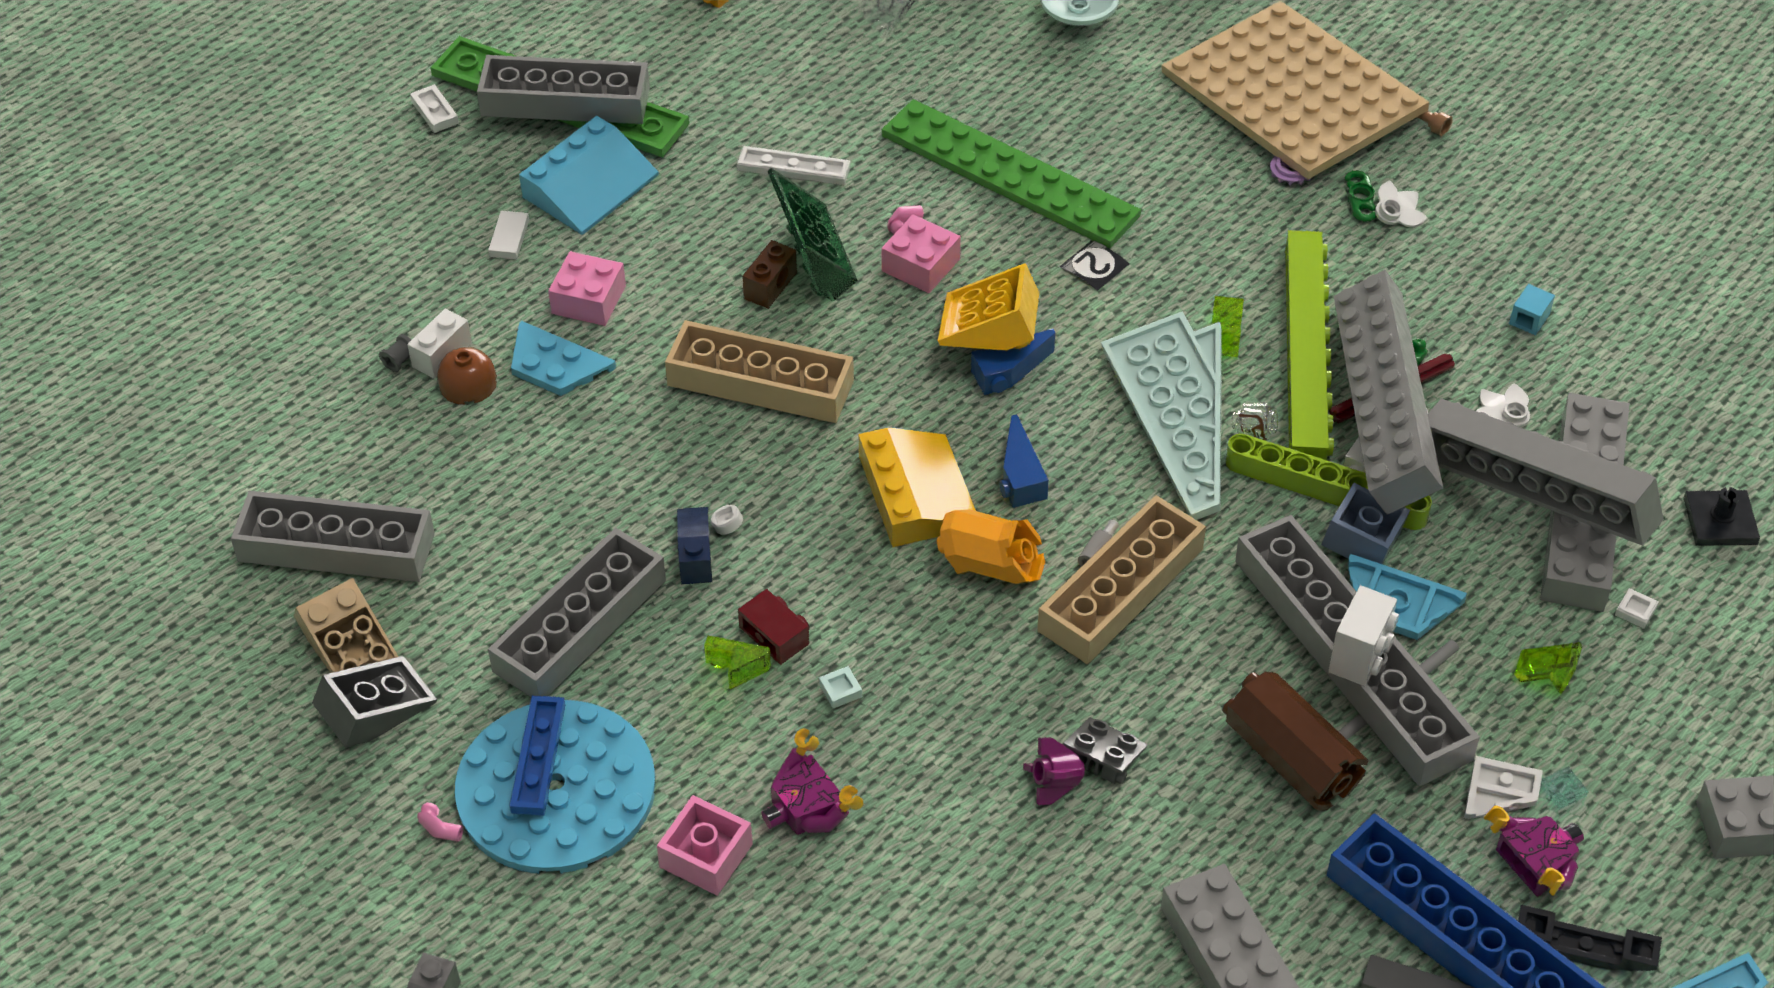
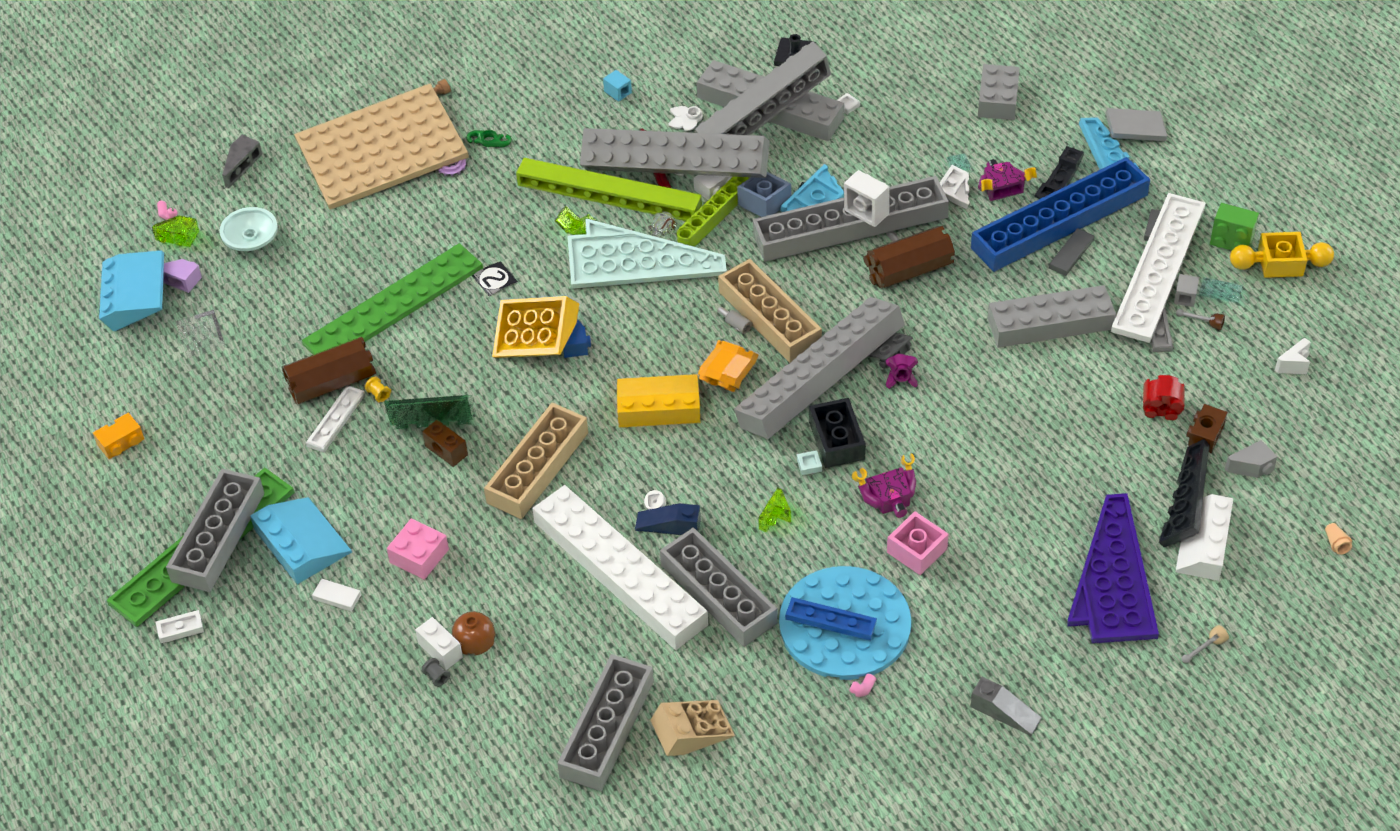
camera: 75 degrees left, 0 degrees up
(371, 699) = (754, 714): dark grey slope -> none
(554, 361) = (474, 581): medium azure wing -> none
(597, 498) = (621, 567): none -> white brick
(774, 626) = (753, 487): dark red brick -> none
(849, 189) = (375, 387): none -> yellow bush
(855, 129) = (328, 370): none -> reddish brown brick
(898, 706) = (837, 432): none -> black brick
(901, 215) = (414, 366): bright pink arm -> none
(921, 253) = (458, 359): bright pink brick -> none
(1022, 471) = (659, 343): blue slope -> none
(1026, 662) = (819, 367): none -> light grey brick
(1398, 206) = (506, 125): white plate -> none
(1549, 662) = (882, 142): clear neon green slope -> none

